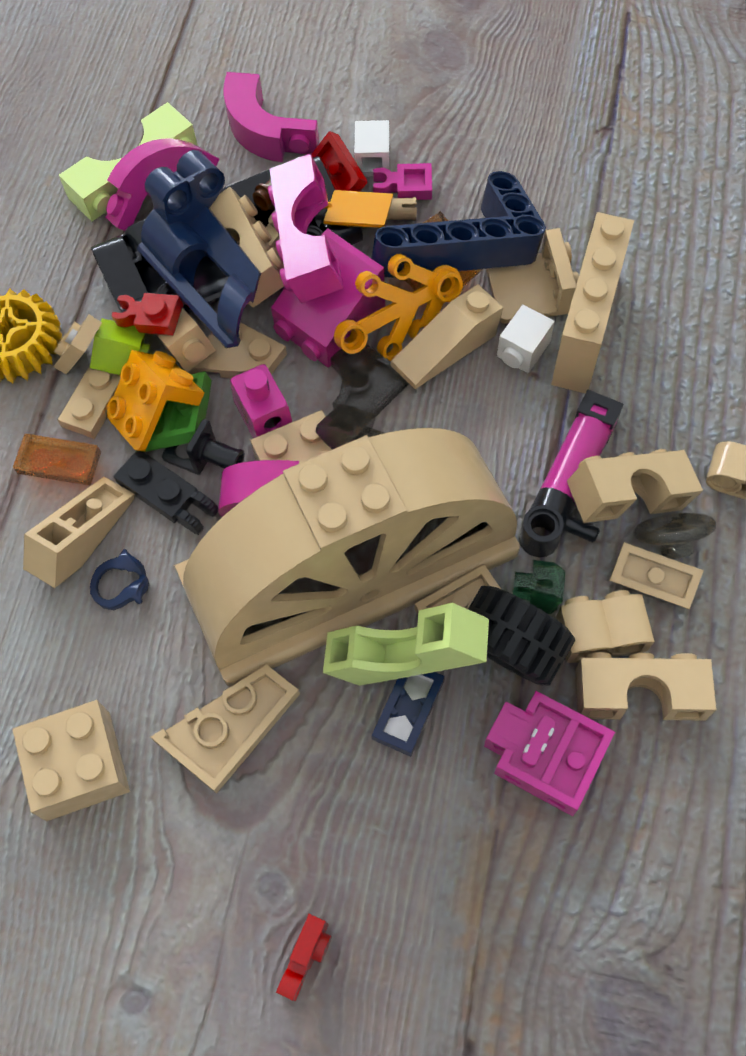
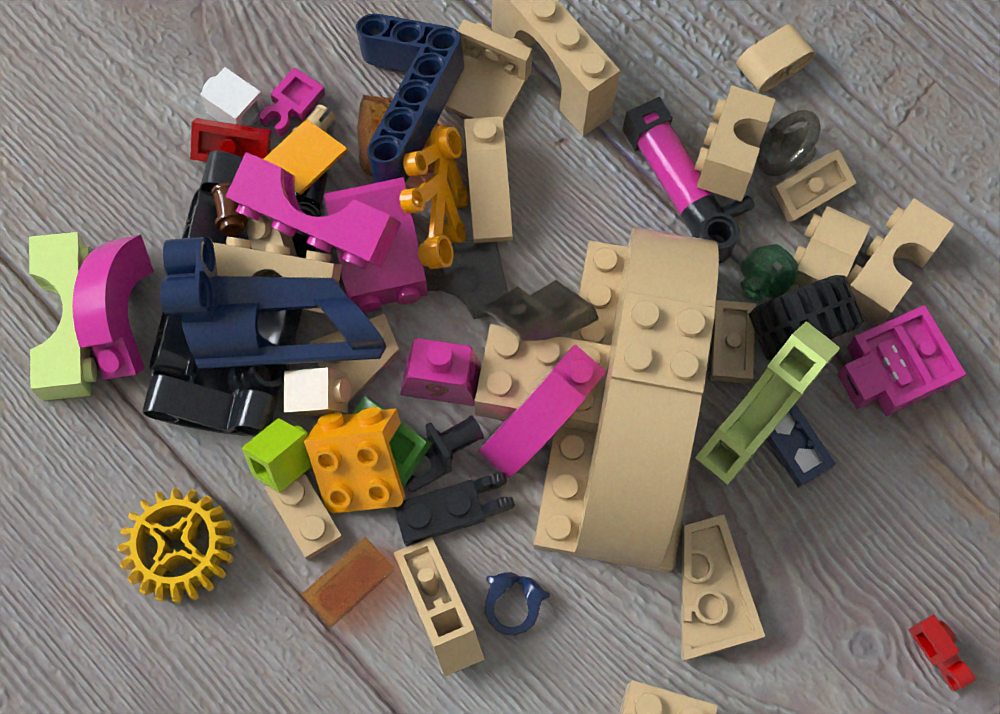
camera: 60 degrees left, 5 degrees up
(75, 343) = (248, 488): tan piece -> none
(152, 315) = (282, 397): red plate -> none
(257, 129) = (116, 181): dark pink arch -> none
(525, 339) = (533, 123): white brick -> none

